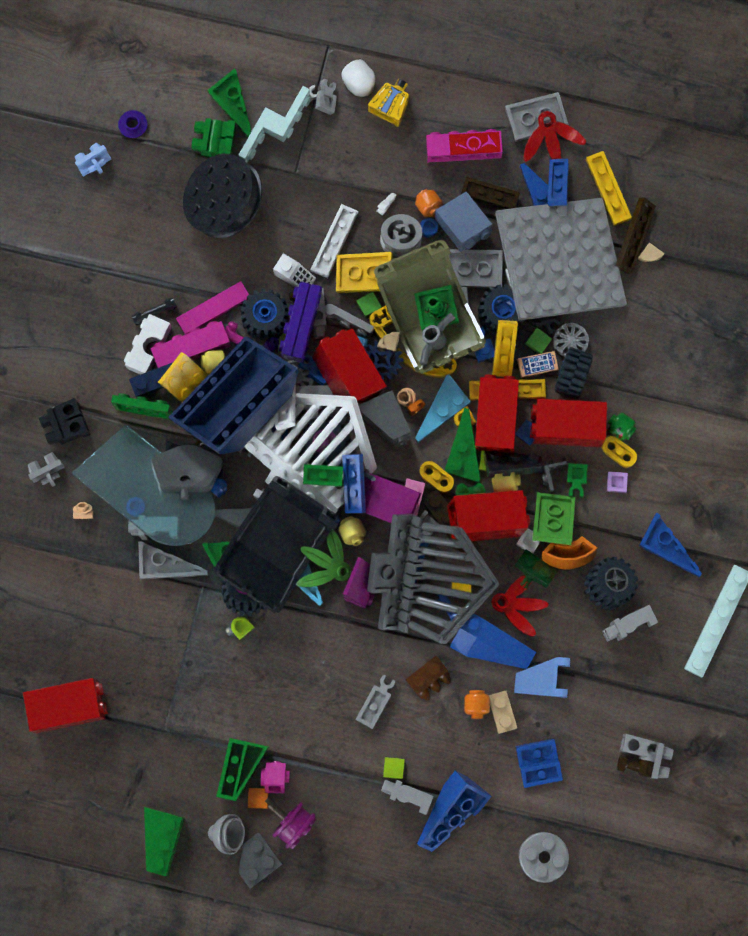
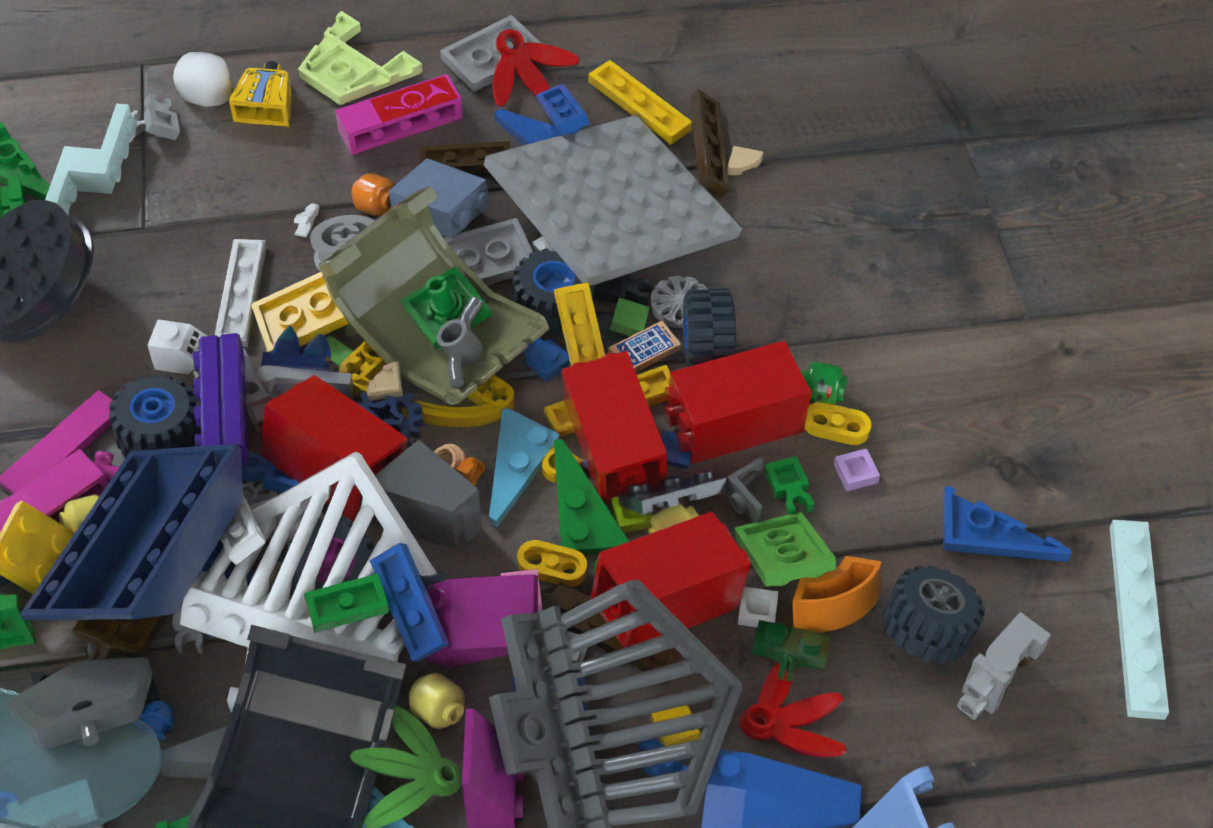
camera: 25 degrees left, 25 degrees down
(344, 299) = (287, 353): none -> clear blue tile
(442, 98) = (346, 73): none -> yellowish green wing

